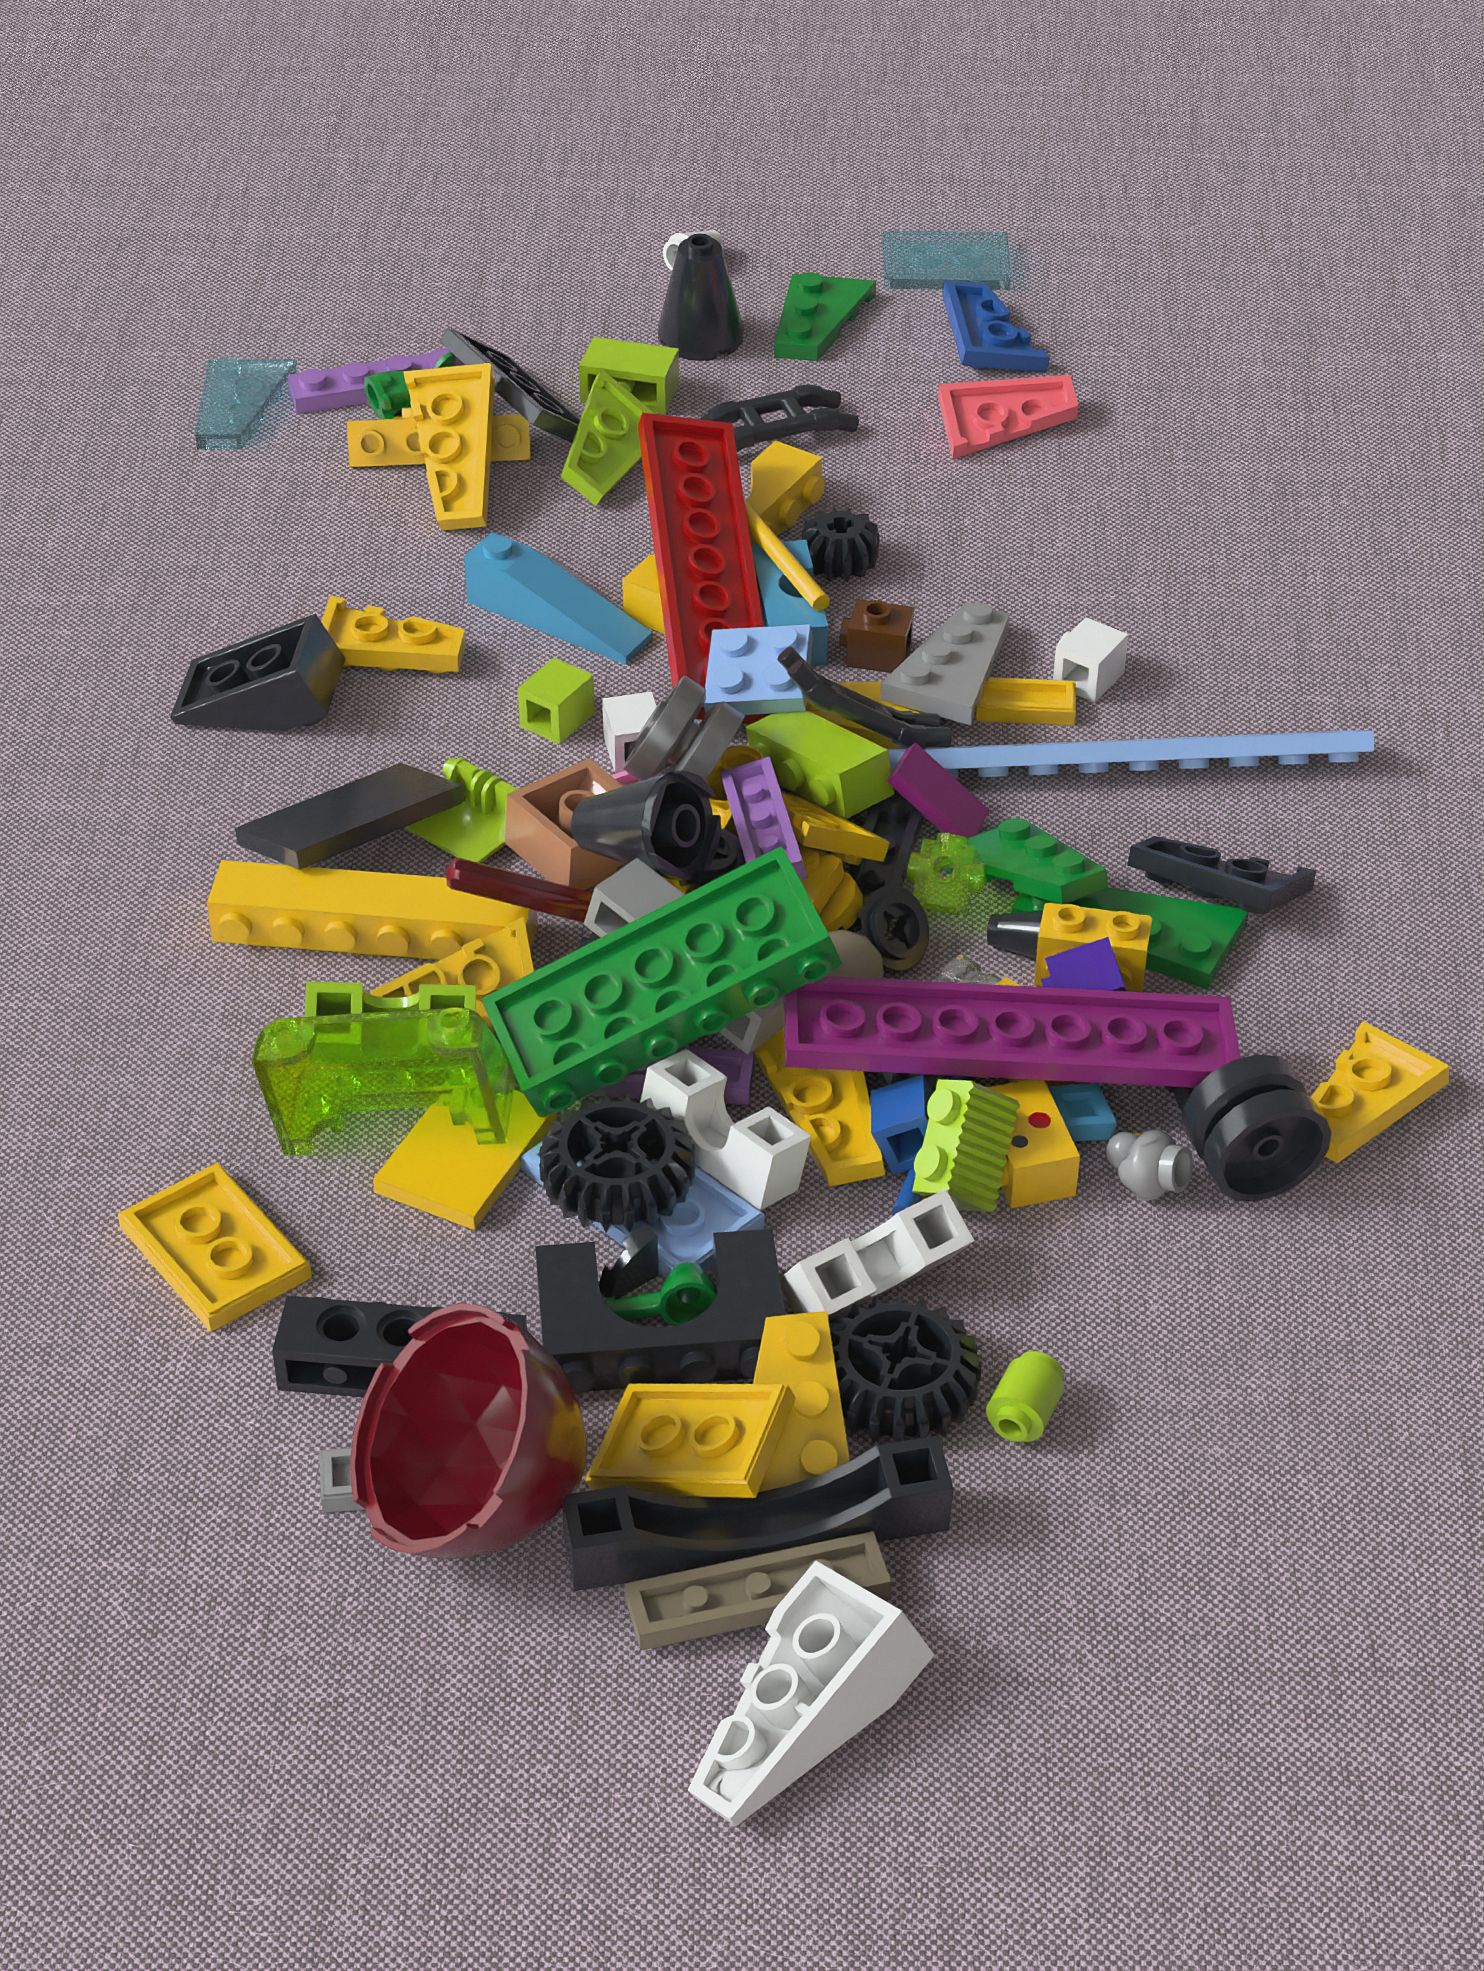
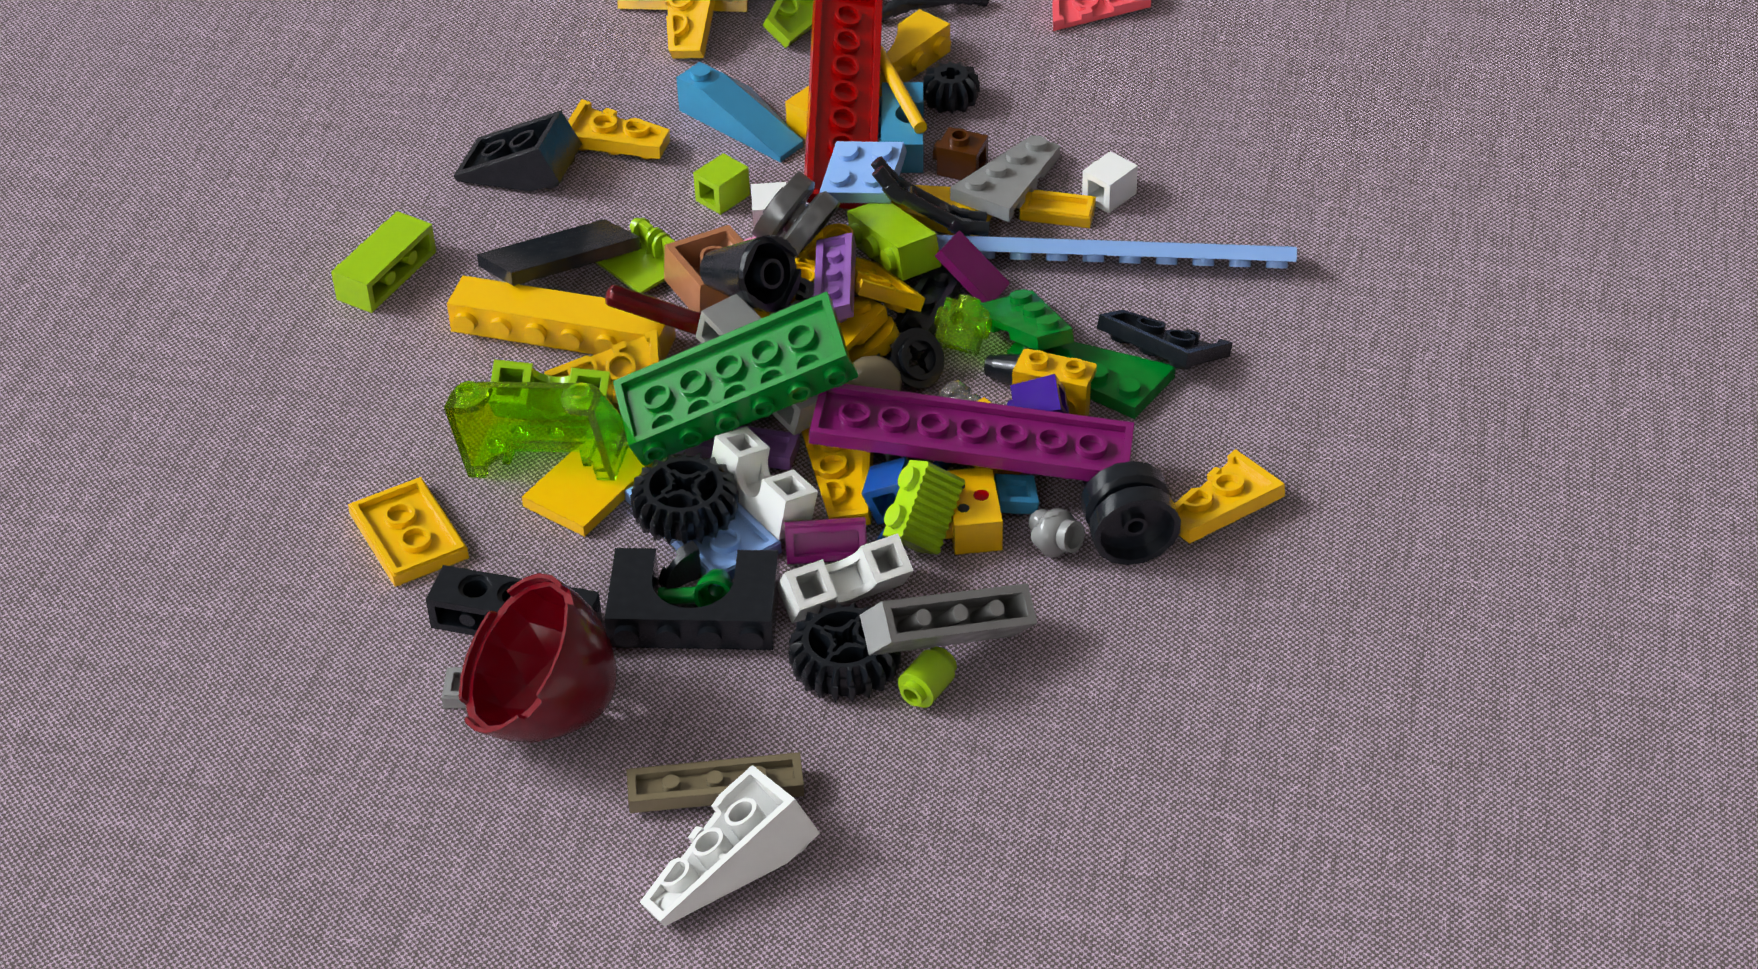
camera: 10 degrees right, 0 degrees up
(97, 848) = (383, 262): none -> lime brick
(641, 1535) = (637, 737): black arch -> none
(692, 1439) = (690, 682): yellow tile -> none
(800, 1354) = (763, 676): yellow wing -> none
(829, 1205) = (823, 539): none -> magenta tile
(1045, 1310) = (948, 619): none -> light grey brick

